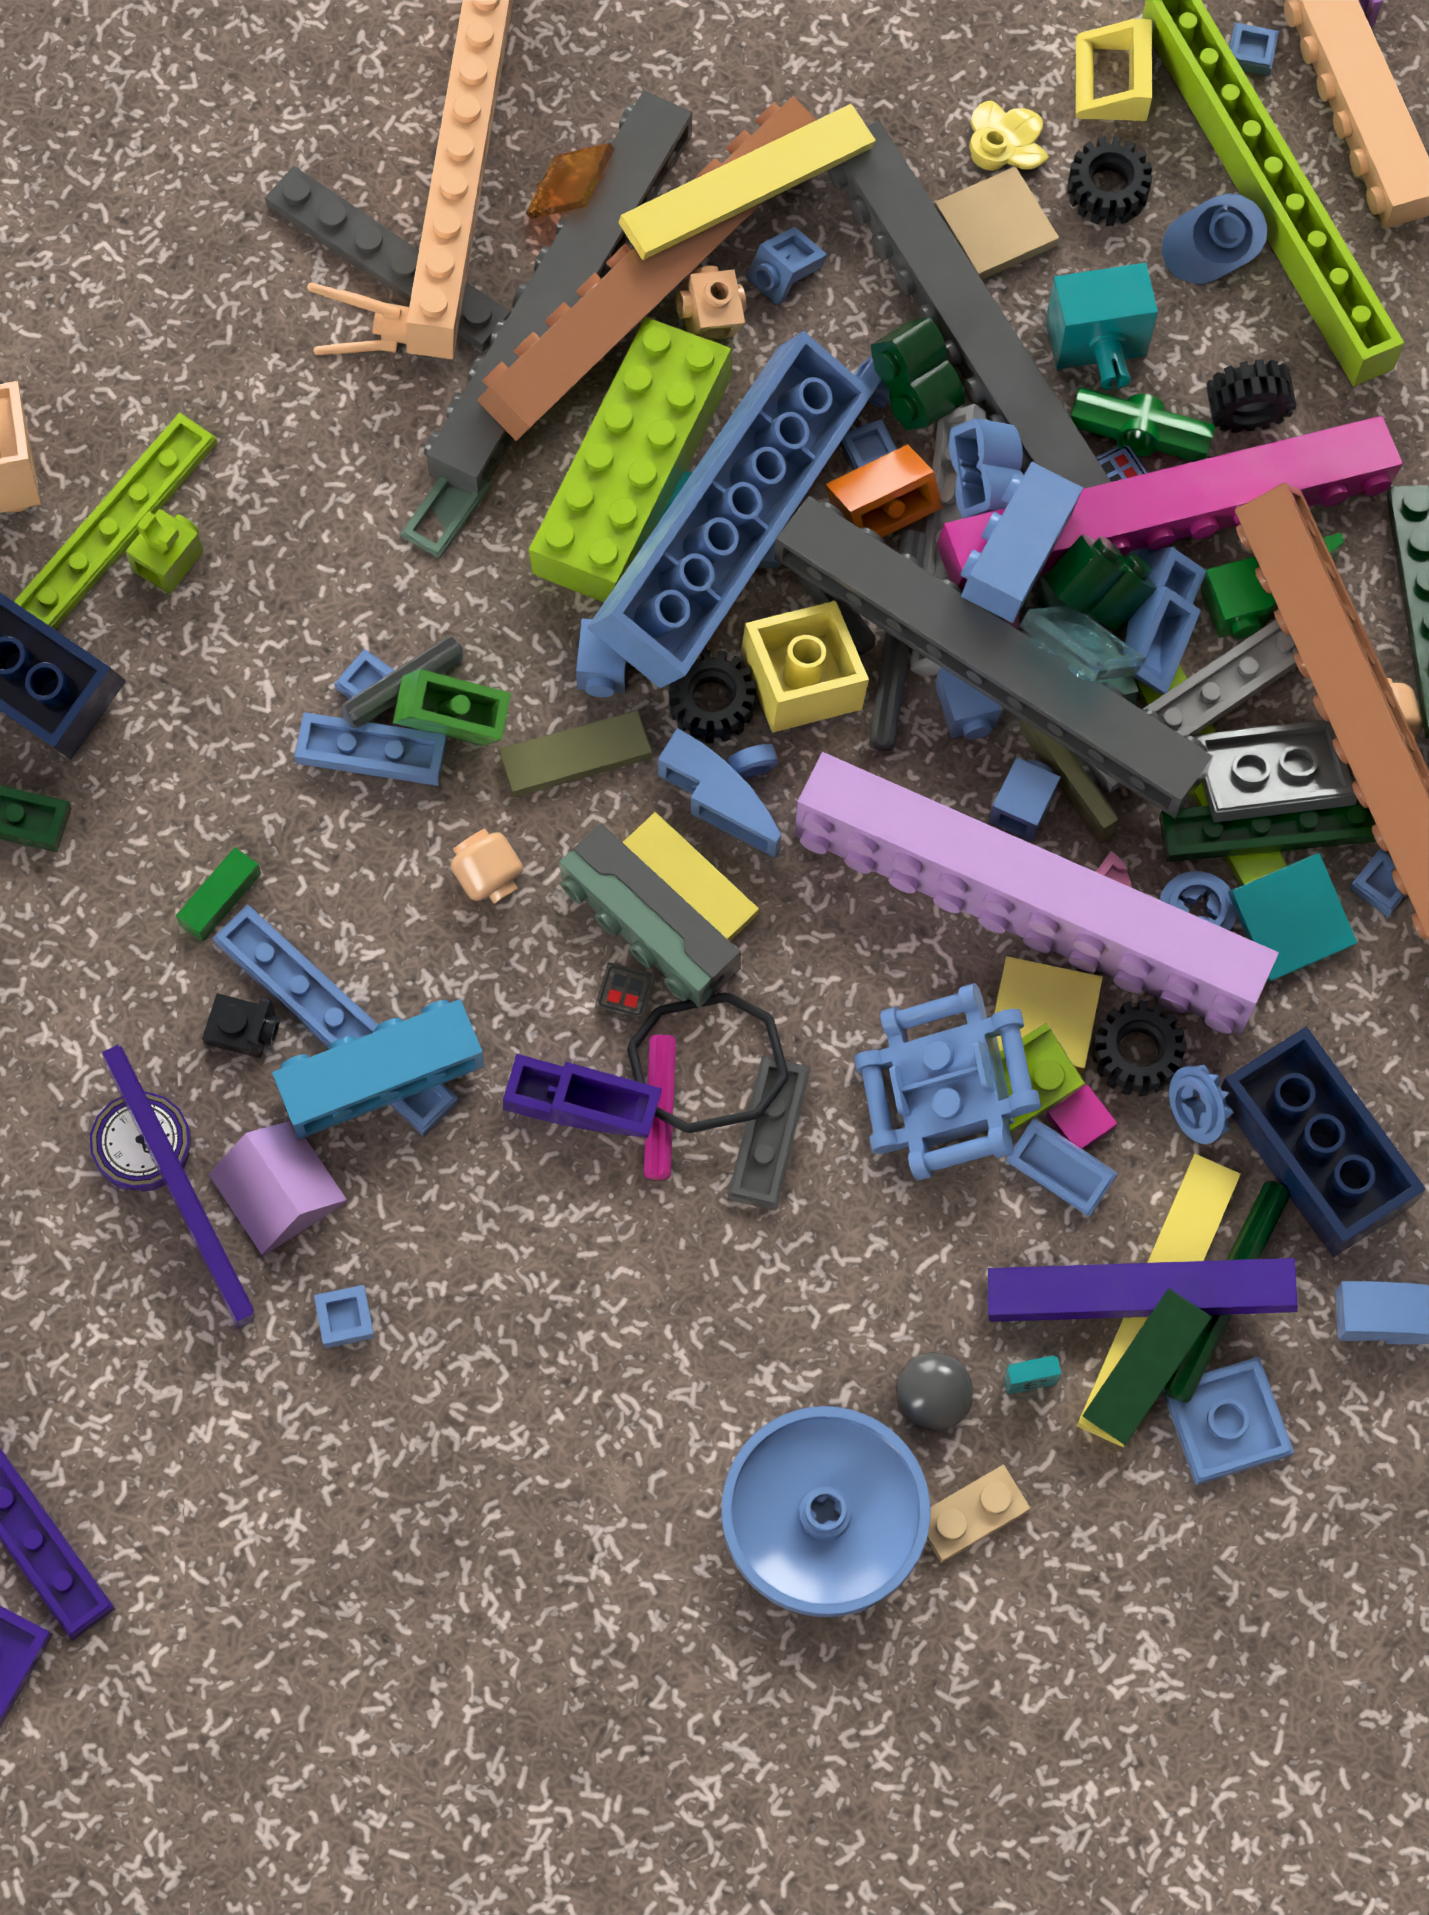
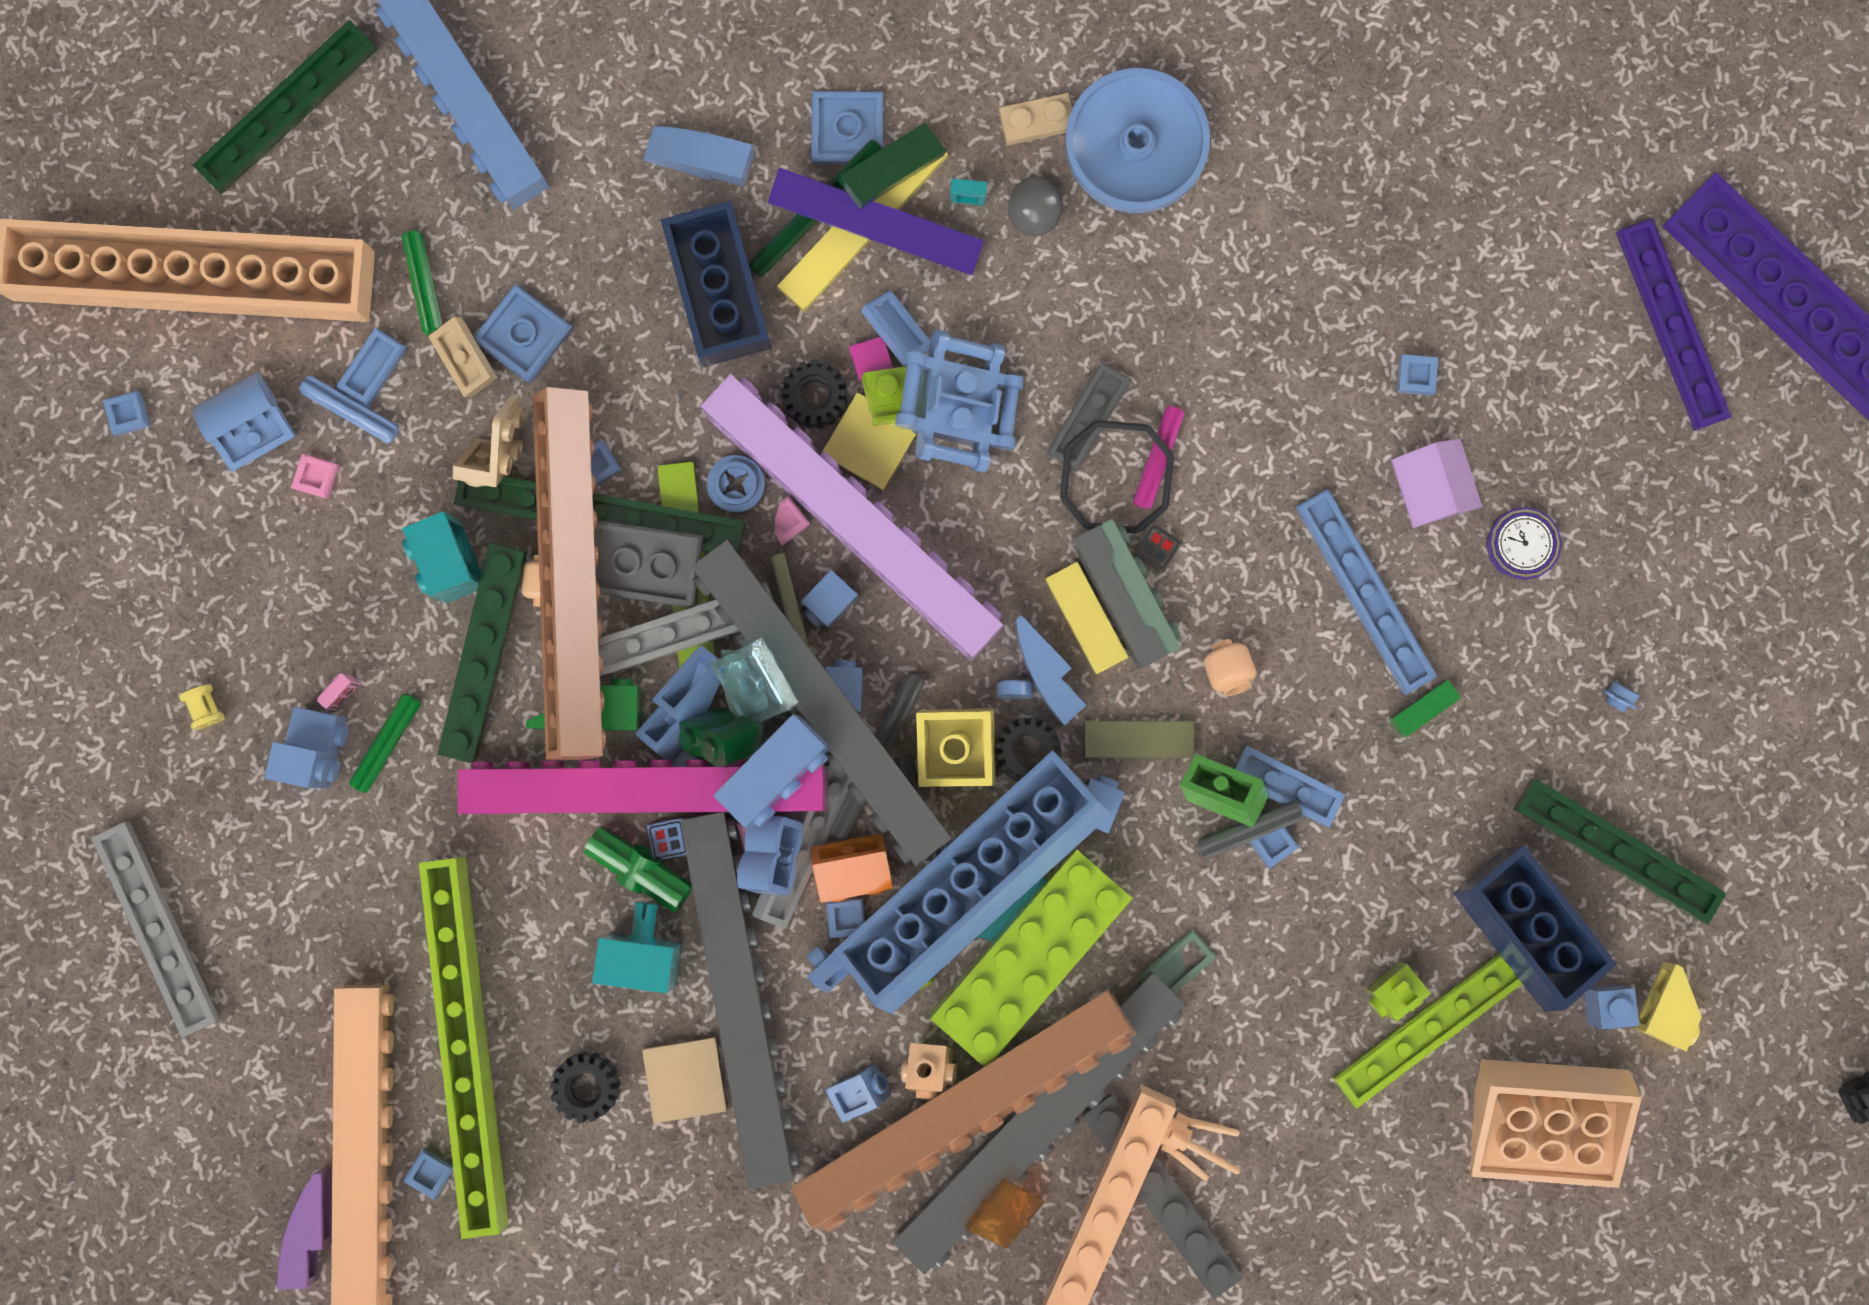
camera: 160 degrees left, 15 degrees up
(178, 1186) = (1511, 494): dark purple tile -> none
(241, 1025) = (1433, 605): black bracket -> none
(378, 1067) = (1350, 535): dark azure brick -> none
(580, 1097) = (1213, 474): dark purple slope -> none
(746, 181) = (873, 1156): light yellow tile -> none
(917, 373) = (794, 957): dark green brick -> none
(1006, 137) = (645, 1155): light yellow plate -> none
(1128, 105) = (526, 1176): light yellow tile -> none
(1199, 1120) = (788, 336): medium blue gear -> none
(1214, 238) = (524, 1007): medium blue piece -> none
(1251, 396) = (548, 862): black tyre -> none
(1294, 915) = (672, 454): teal tile -> none

